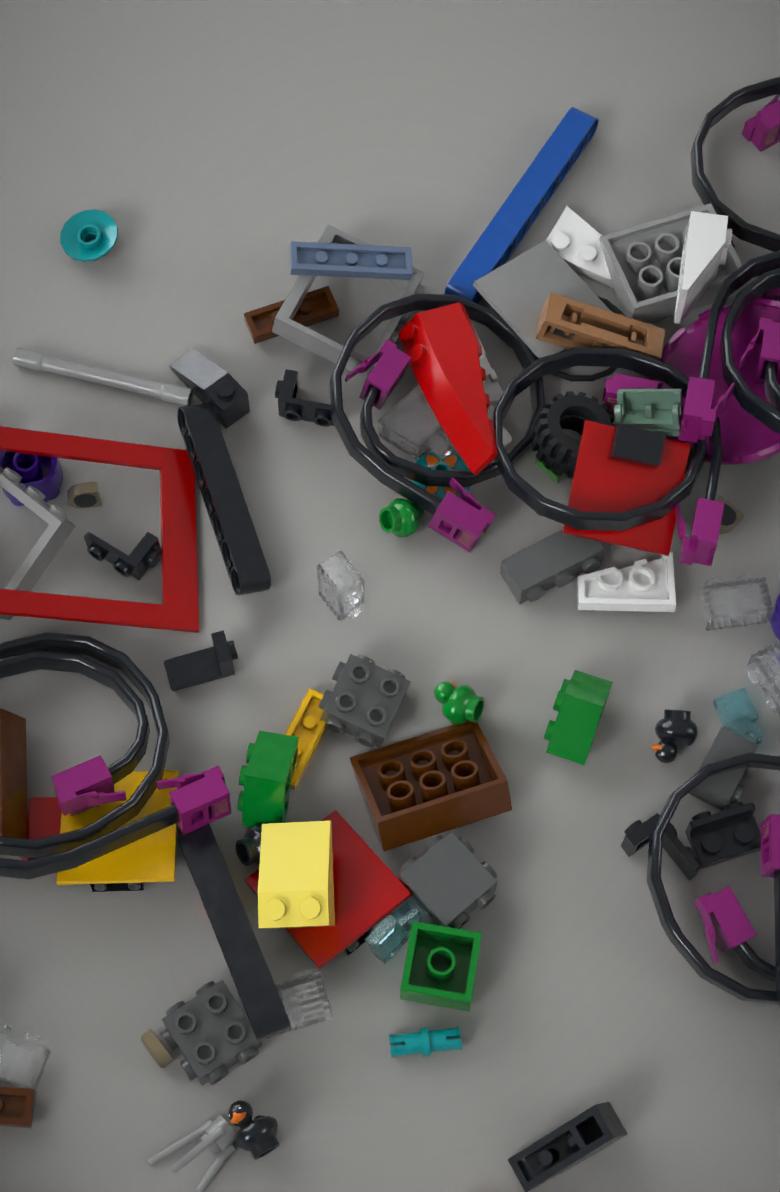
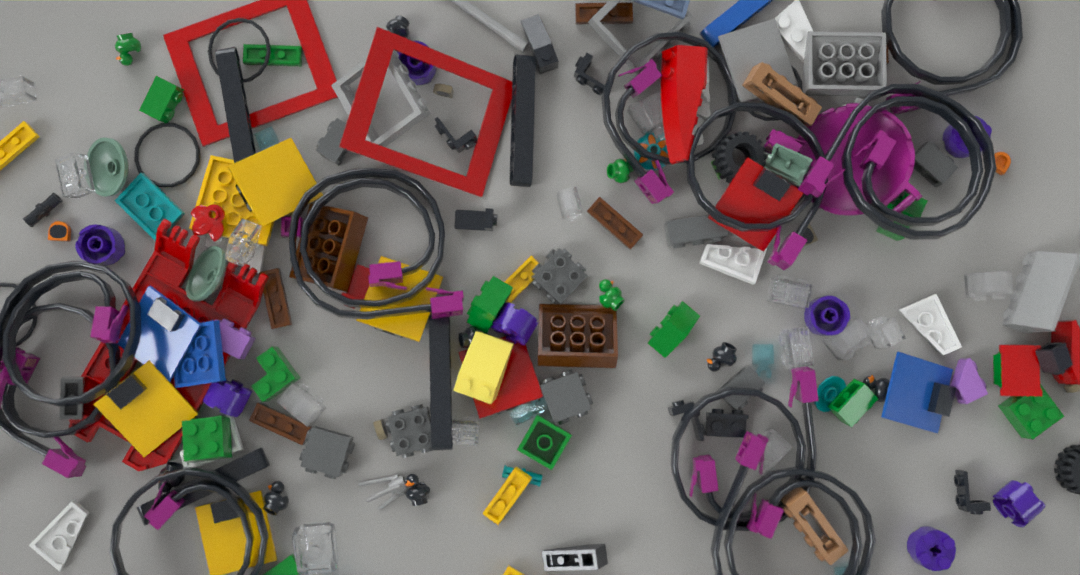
camera: 15 degrees right, 20 degrees up
(75, 1120) = (326, 452): none -> dark grey brick
(322, 791) = (515, 324): none -> dark purple brick
(412, 1082) = (507, 495): none -> yellow tile
(423, 595) = (614, 223): none -> reddish brown plate
(702, 253) = (864, 69): white slope -> none

